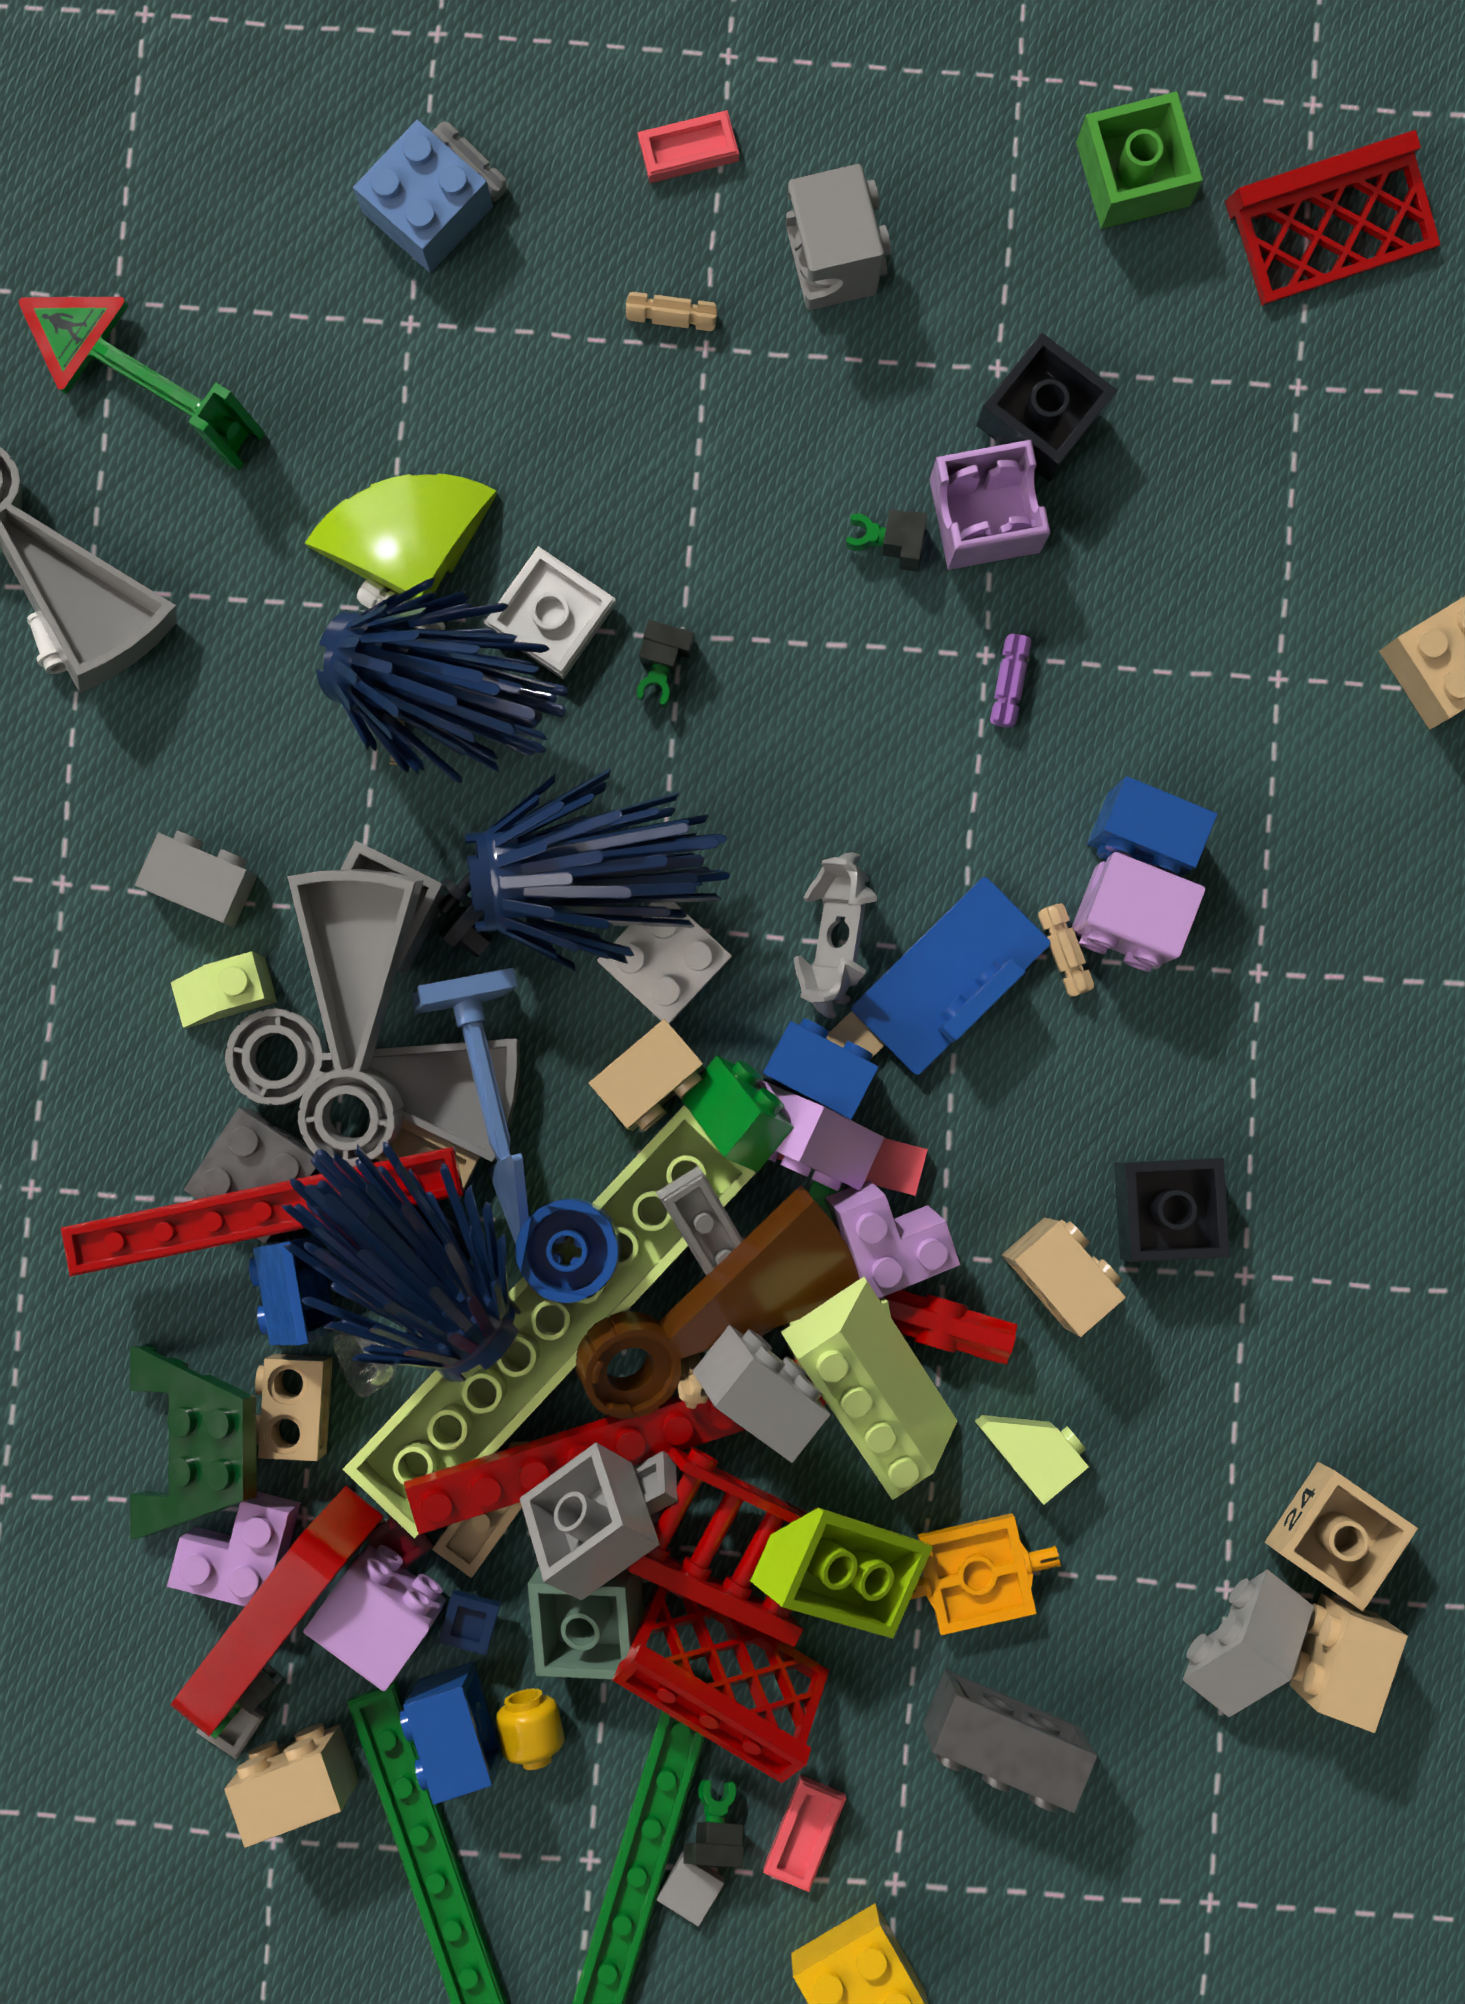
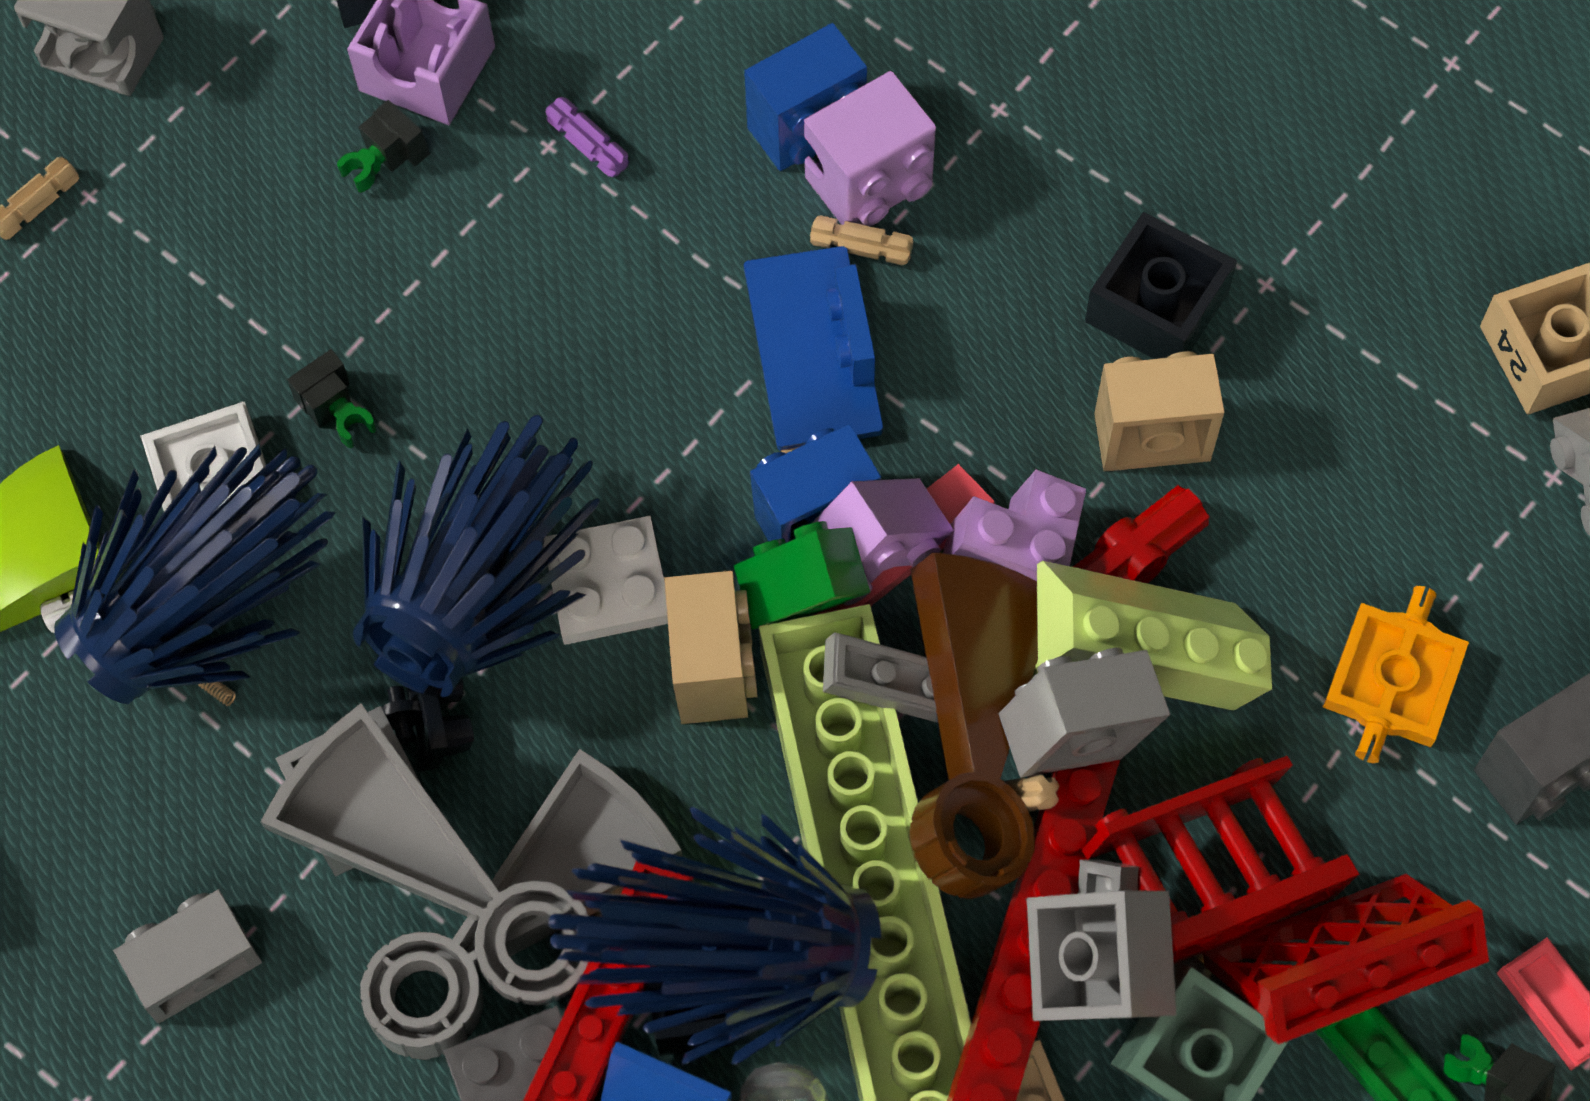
camera: 50 degrees left, 20 degrees down
(223, 989) = (313, 1005): yellowish green slope -> none
(466, 999) = (505, 763): medium blue piece -> none
(545, 1266) = (820, 770): blue brick -> none
(835, 969) = (669, 382): light grey piece -> none
(842, 1571) = (1307, 767): lime slope -> none
(1037, 1452) = (1312, 549): yellowish green slope -> none

